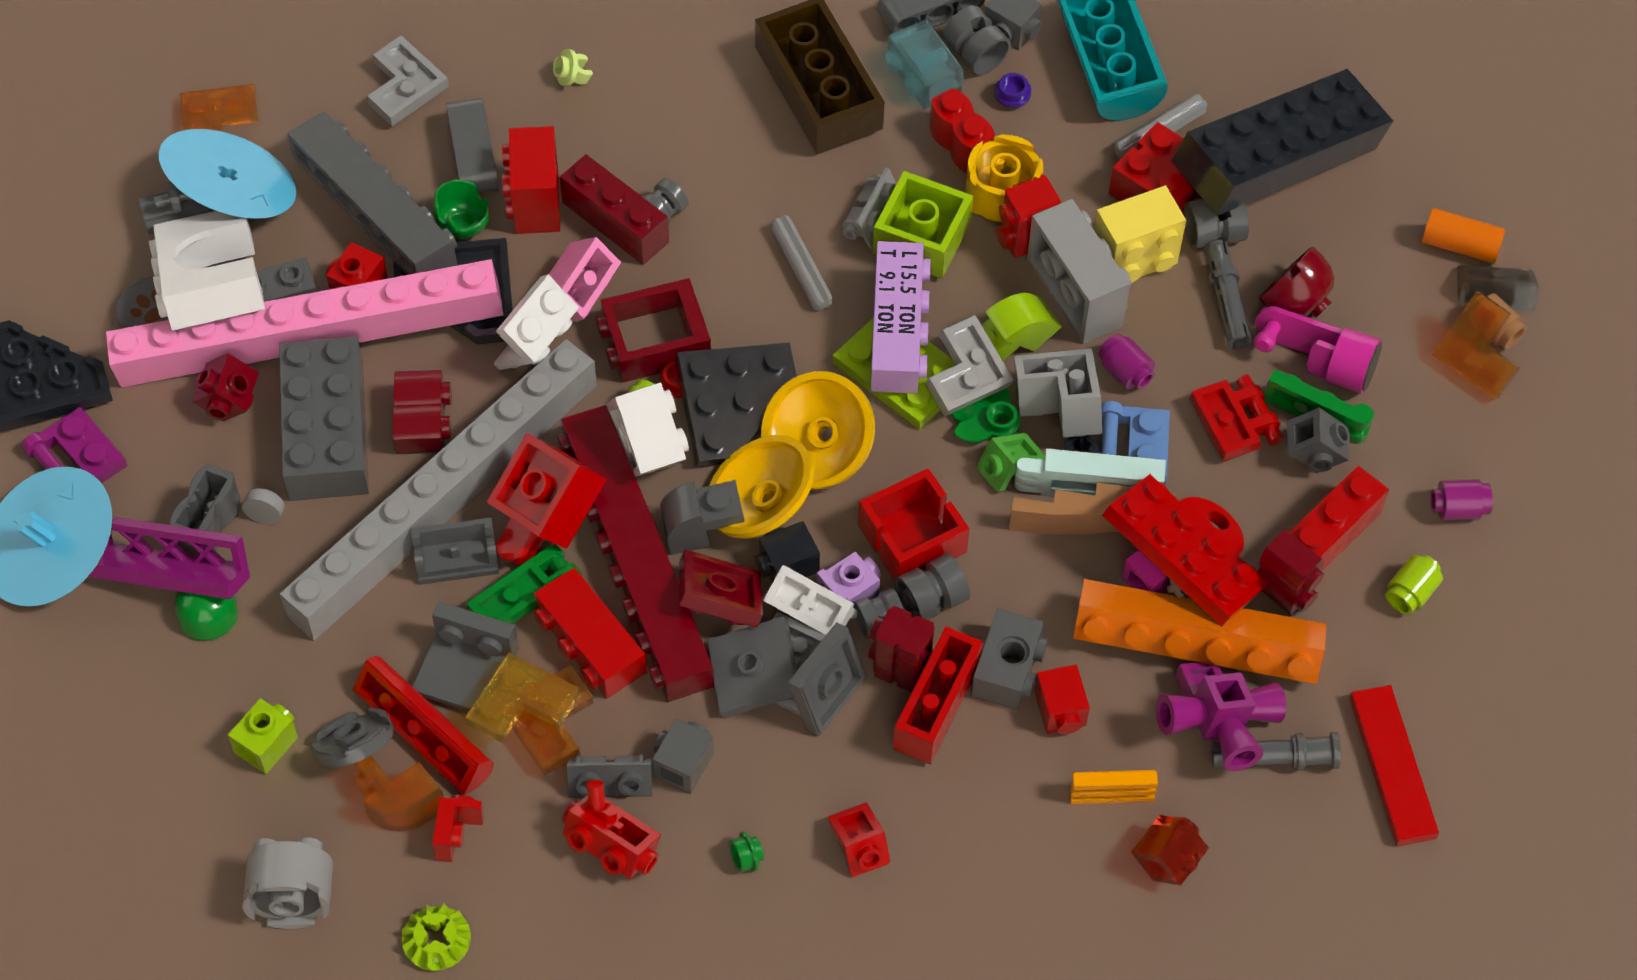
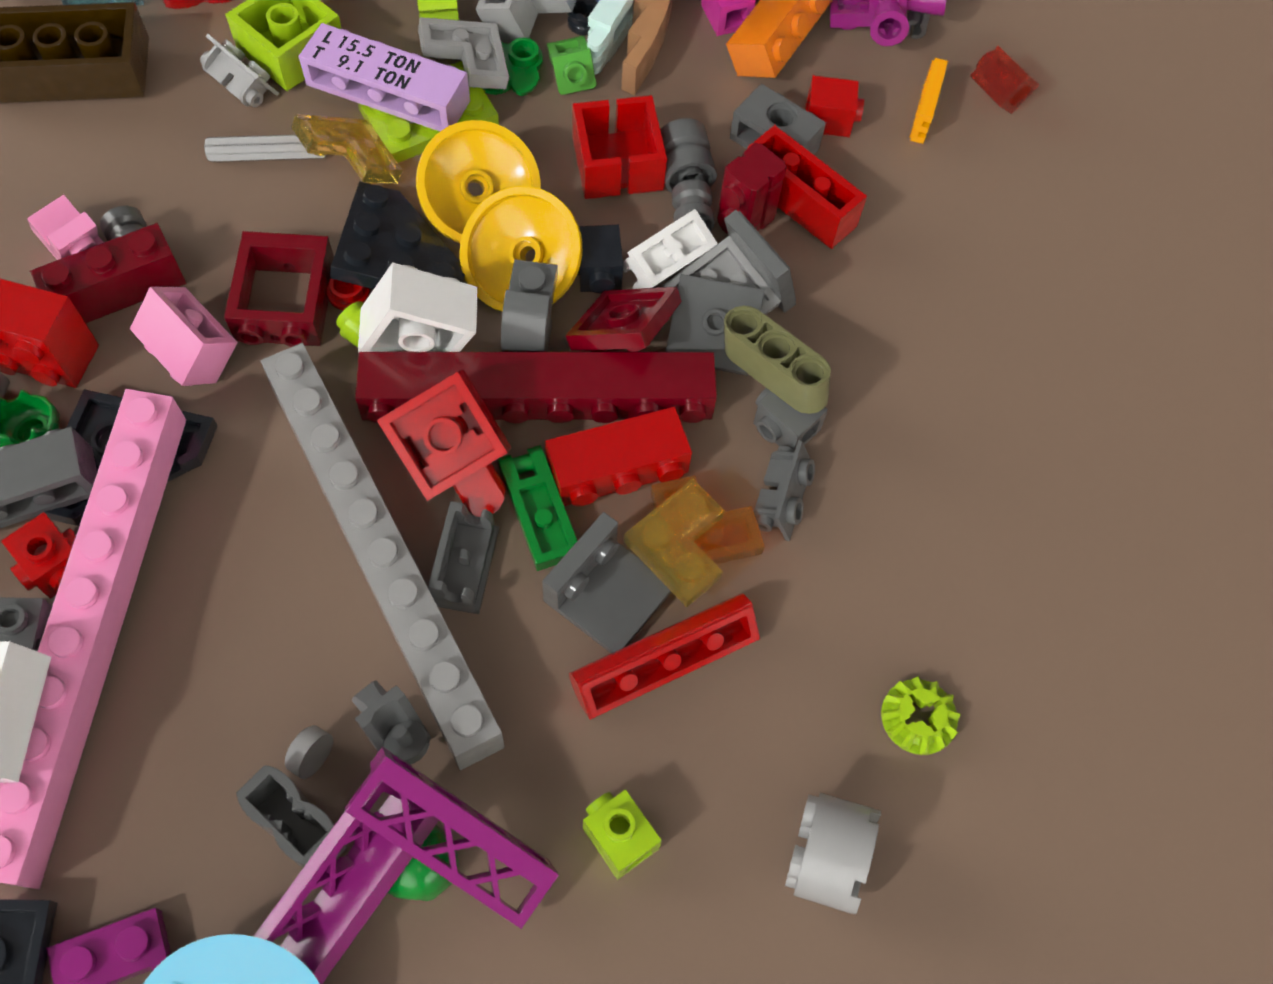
camera: 75 degrees left, 5 degrees up
(225, 387) = (121, 749): dark red brick -> none
(232, 612) = (463, 819): none -> magenta fence
(293, 544) = (391, 722): none -> dark grey hips
(323, 418) = (220, 647): dark grey brick -> none
(352, 738) = (666, 730): dark grey tile -> none
(397, 803) = (756, 705): clear orange brick -> none
(419, 411) = (264, 542): dark red brick -> none
(450, 823) = (801, 663): red bracket -> none
(535, 324) = (229, 387): white bracket -> none
(610, 834) = (861, 506): red brick -> none
(642, 162) = (64, 228): none -> bright pink brick
(725, 693) = (777, 359): none -> olive beam
(746, 852) = (908, 398): green plate -> none
(830, 317) = (350, 139): none -> clear yellow plate
(839, 578) = (647, 215): lavender brick -> none
(860, 839) = (920, 298): red bracket -> none

